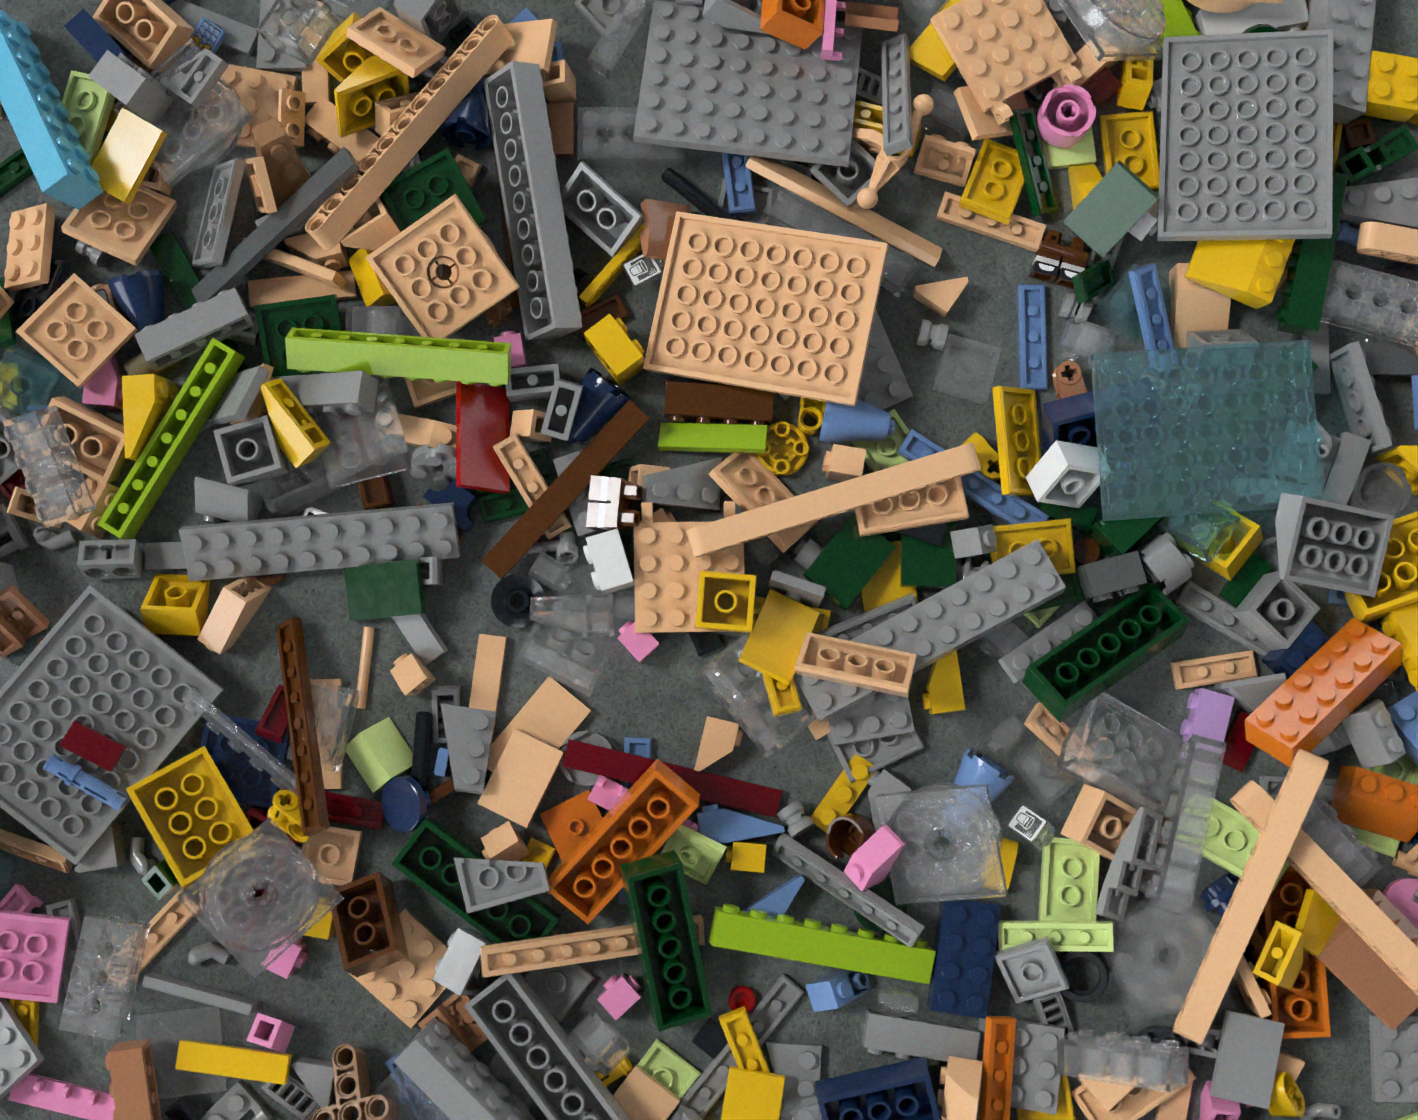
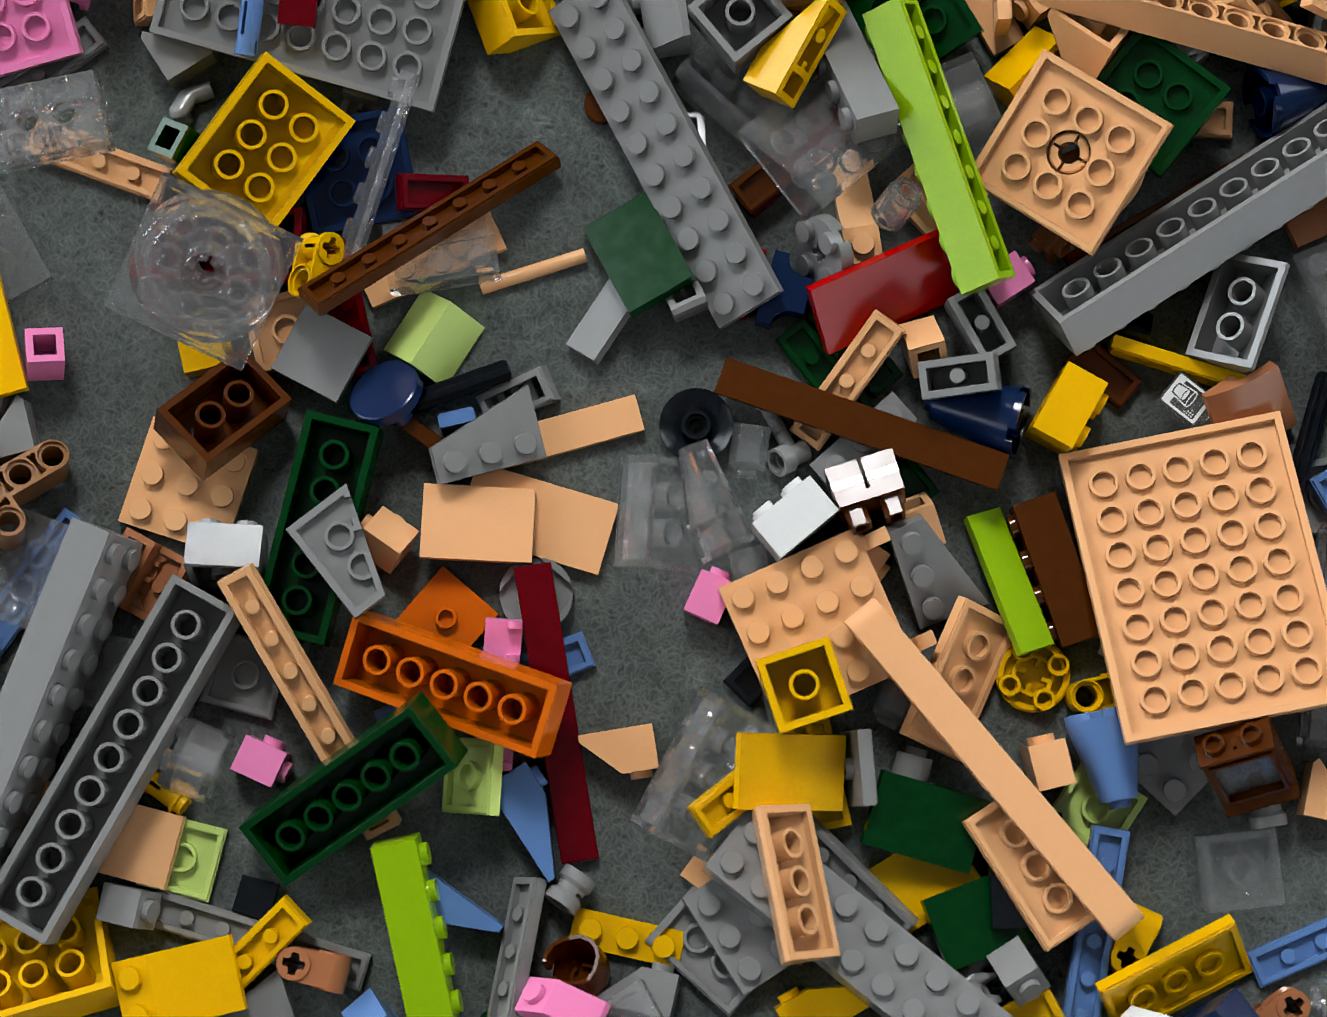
camera: 70 degrees right, 0 degrees up
(200, 993) = (56, 248): light grey tile -> none
(207, 951) = (109, 233): light grey arm -> none
(233, 612) = (532, 81): light nougat slope -> none
(291, 959) = (140, 338): bright pink brick -> none
(356, 837) = (322, 353): none -> light grey tile
(411, 674) = (548, 333): light nougat slope -> none
(427, 401) = (896, 204): none -> clear brick
(539, 852) = (395, 586): yellow tile -> none
(742, 996) = (323, 915): red tile -> none
(746, 856) = (498, 847): yellow brick -> none
(780, 1013) = (322, 968): none -> nougat piece
(901, 333) = (1247, 766): none -> reddish brown window

